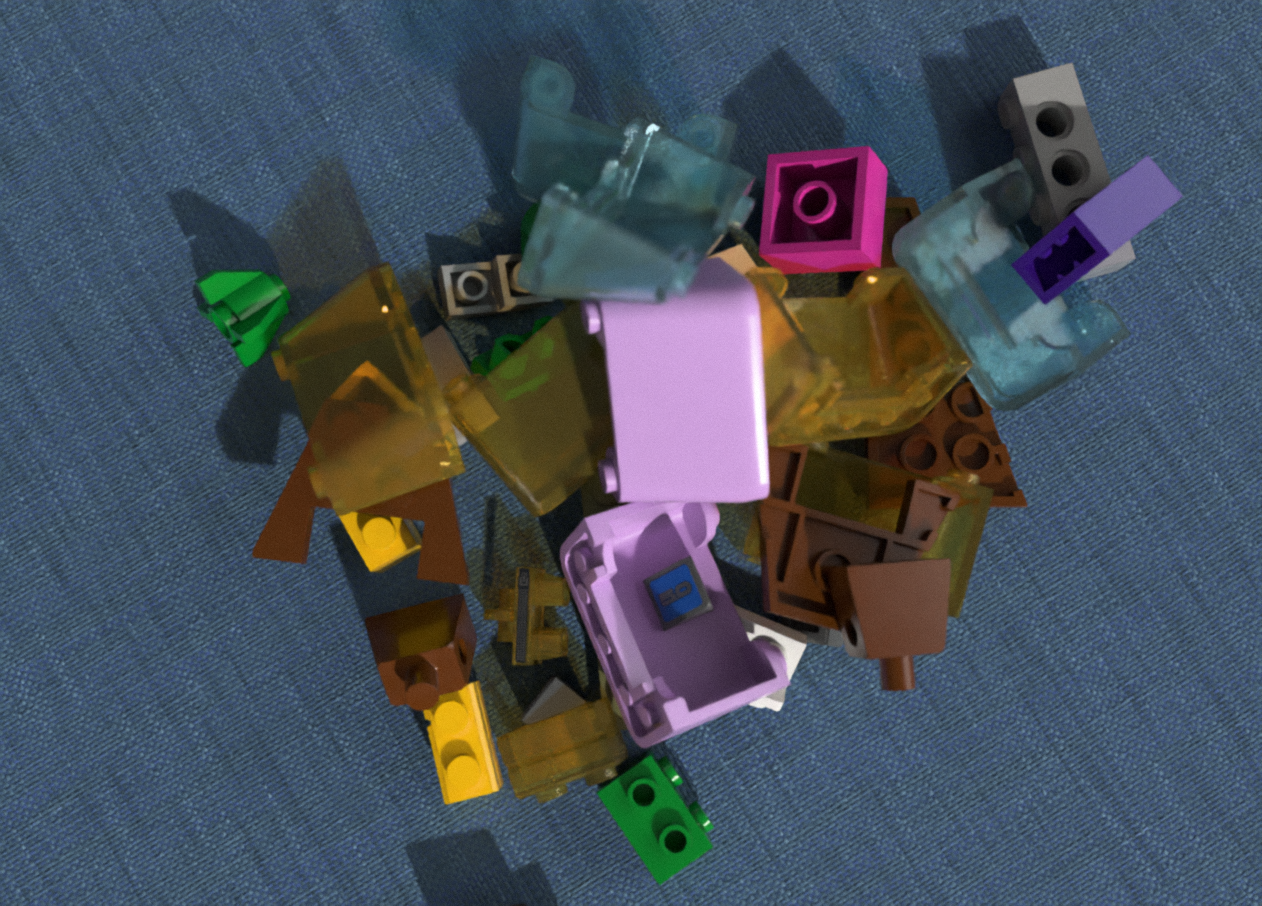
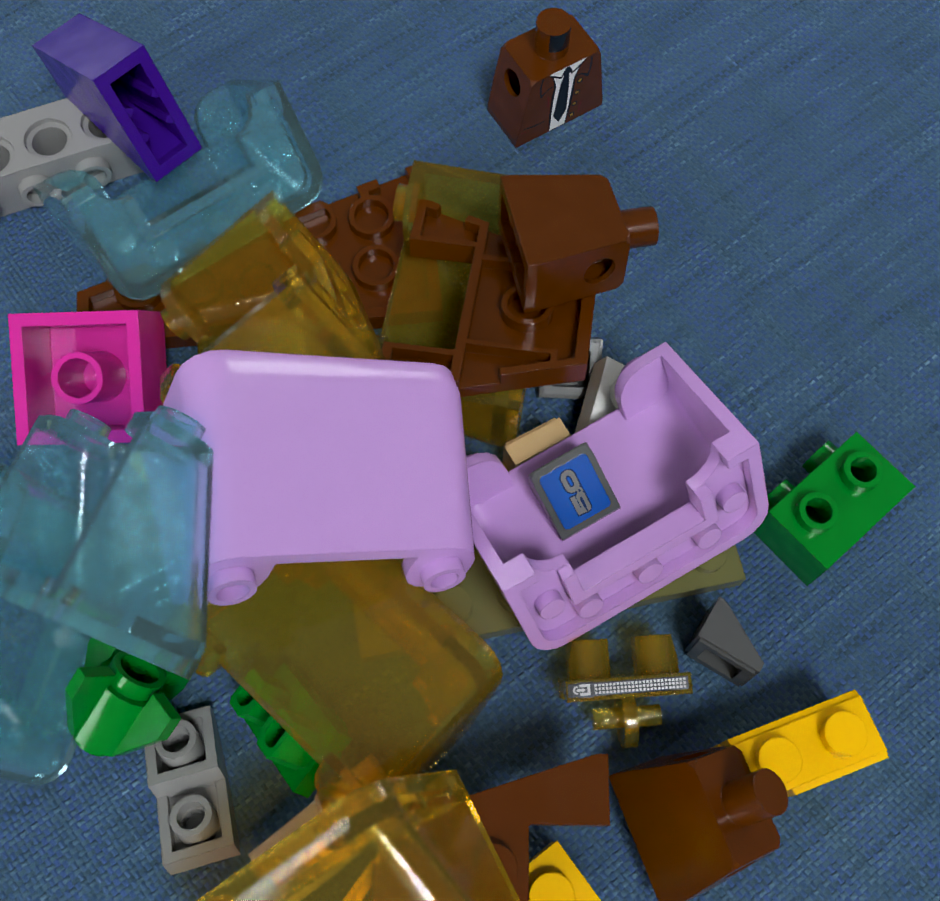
camera: 100 degrees left, 15 degrees down
(563, 750) = (786, 620): clear yellow brick -> none
(732, 572) = (533, 443): none -> tan tile
(1110, 632) = (545, 78): none -> reddish brown torso

